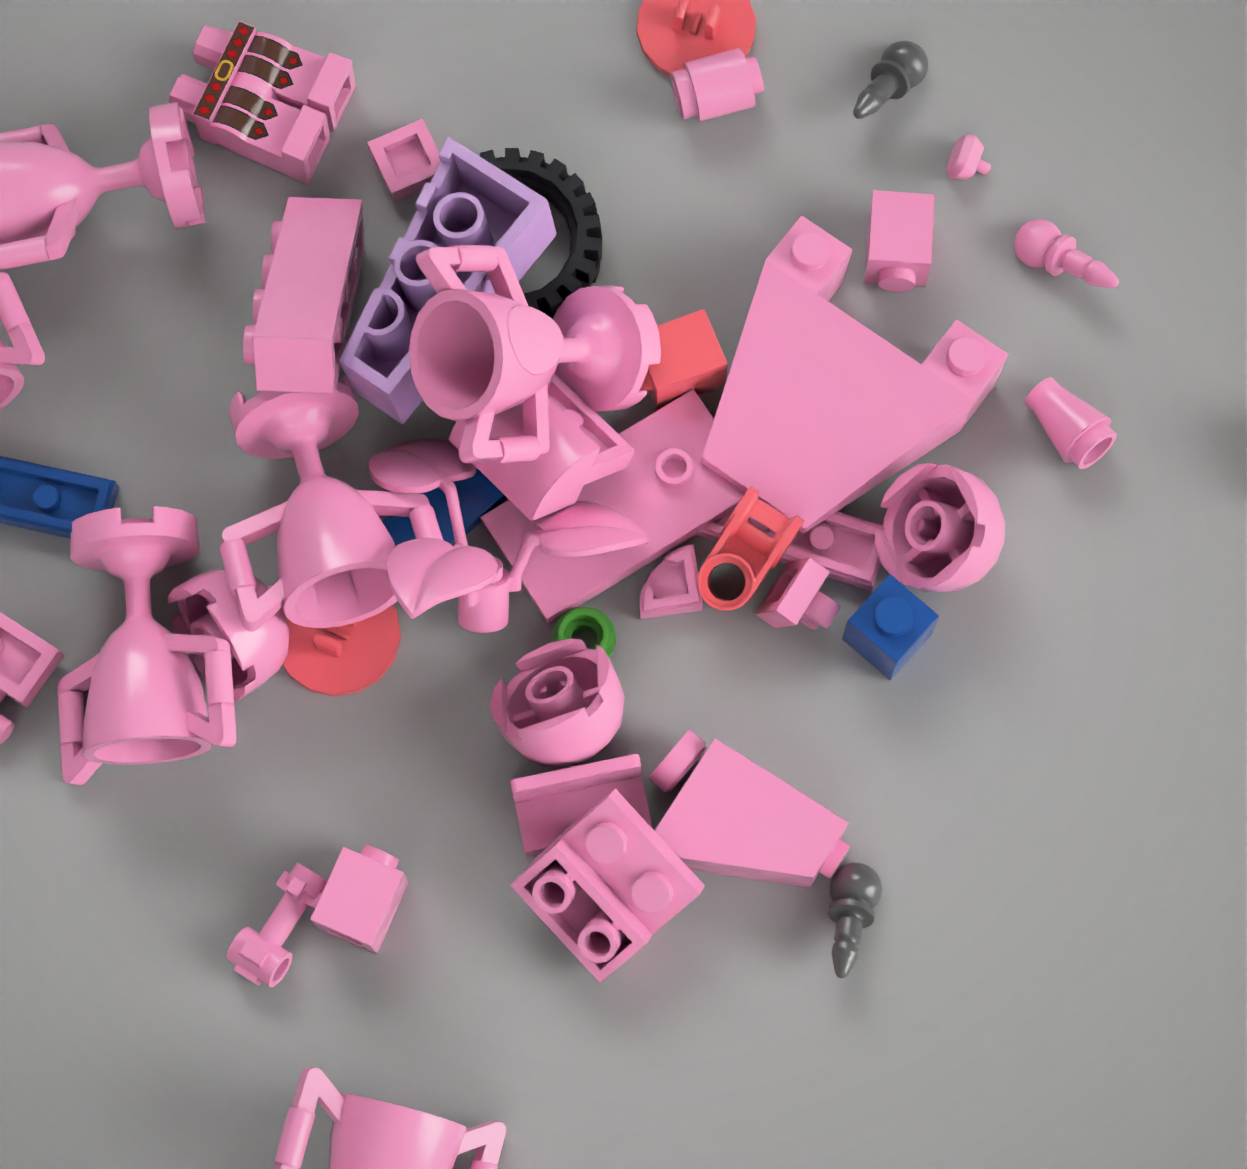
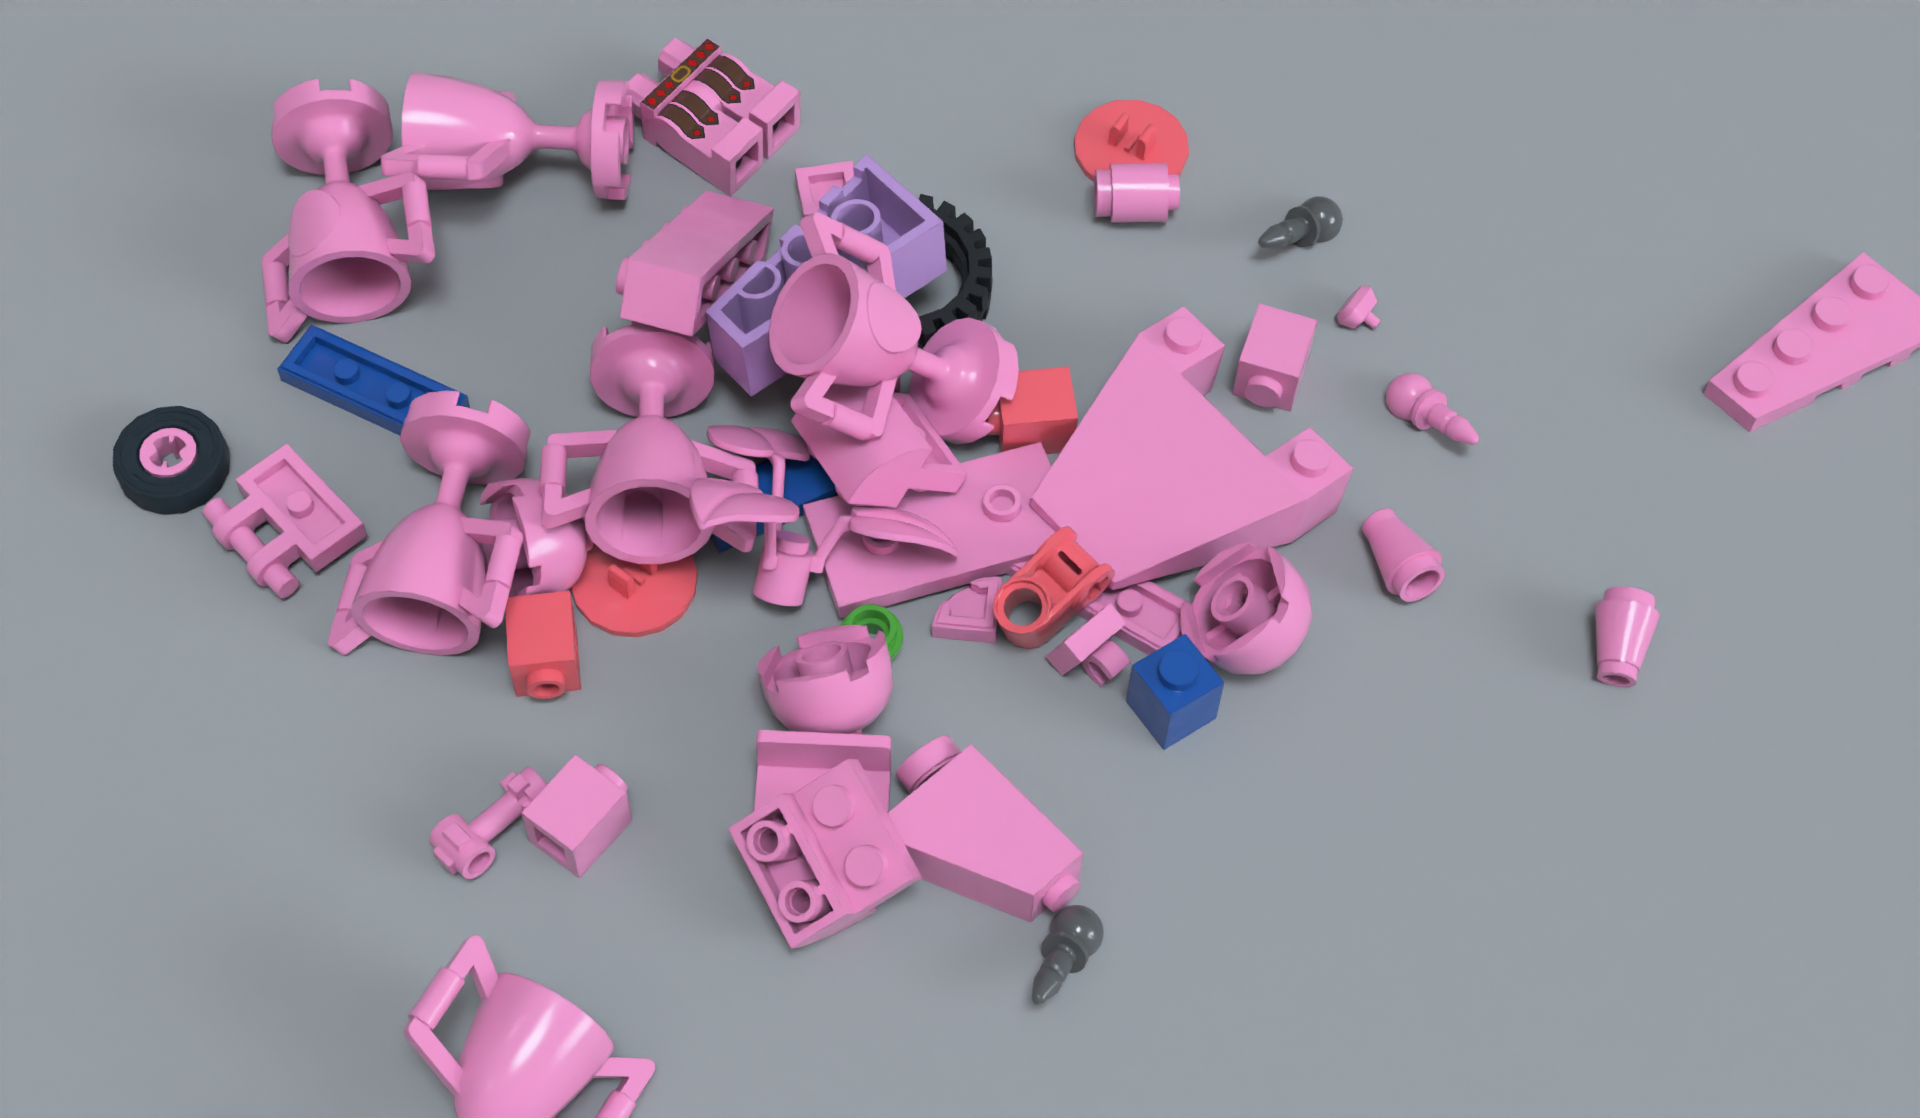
camera: 10 degrees right, 15 degrees down
(274, 734) = (542, 644): none -> coral brick

